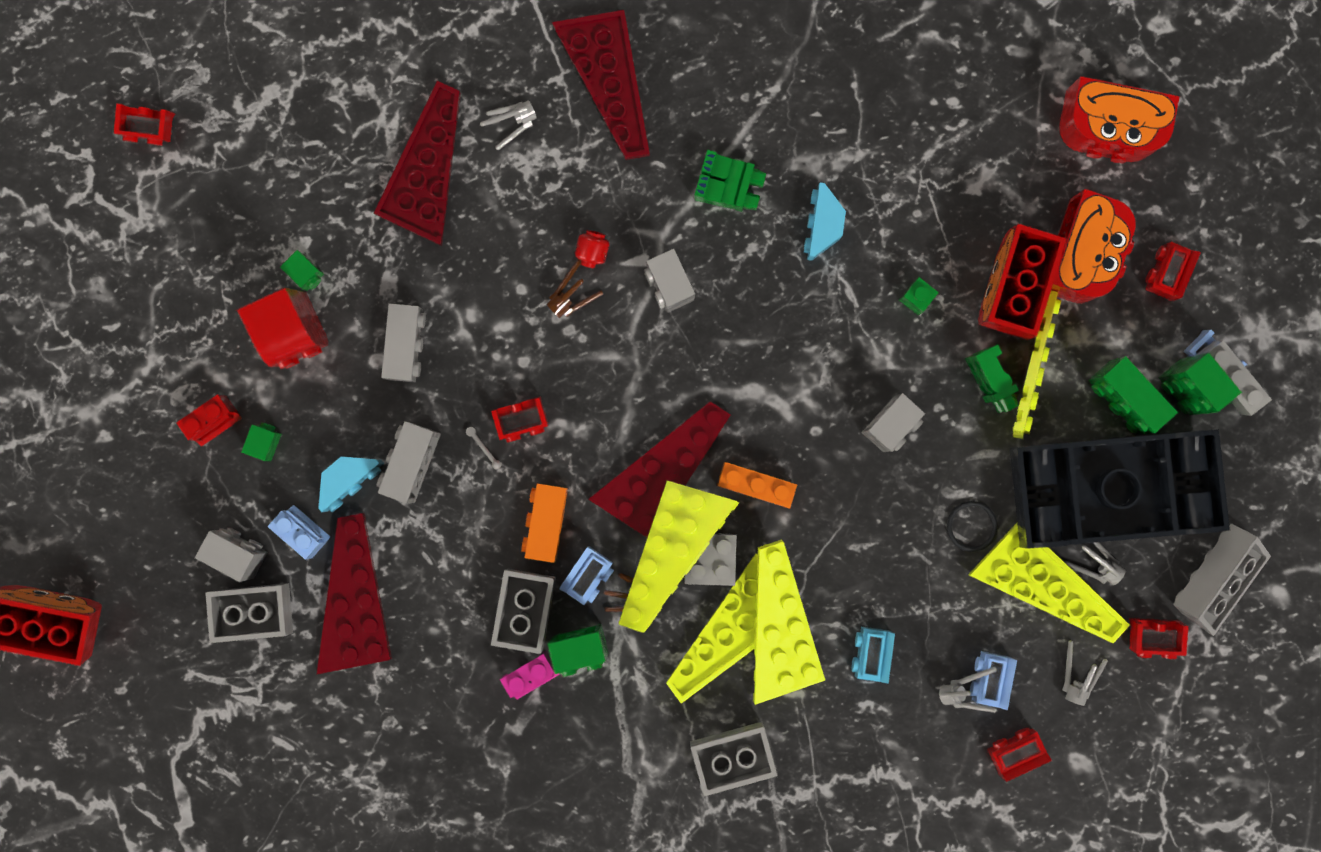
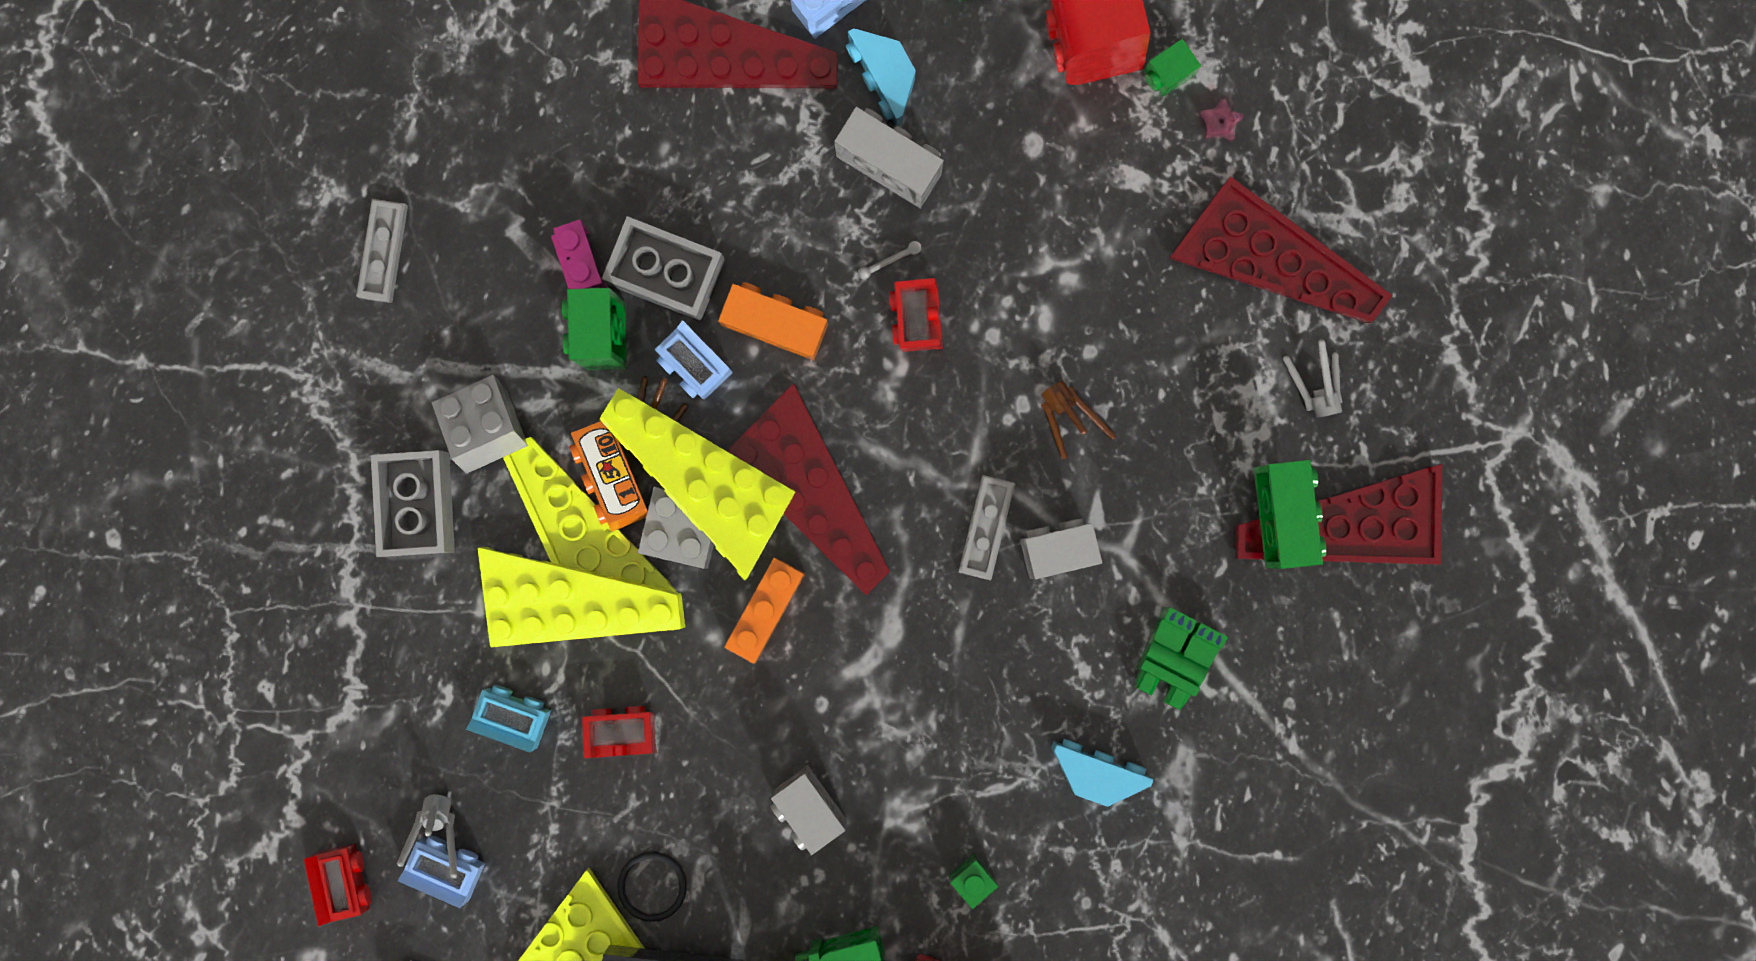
camera: 110 degrees right, 0 degrees up
(340, 230) = (1214, 128): none -> clear pink plate
(403, 343) = (1049, 181): light grey brick -> none
(551, 823) = (382, 250): none -> light grey tile
(592, 248) = (1125, 455): red head -> none
(611, 122) = (1289, 515): none -> green brick
(663, 338) = (986, 527): none -> light grey tile
(664, 722) = (479, 424): none -> light grey brick
(683, 619) = (608, 476): none -> brick
(868, 572) = (620, 733): none -> red window

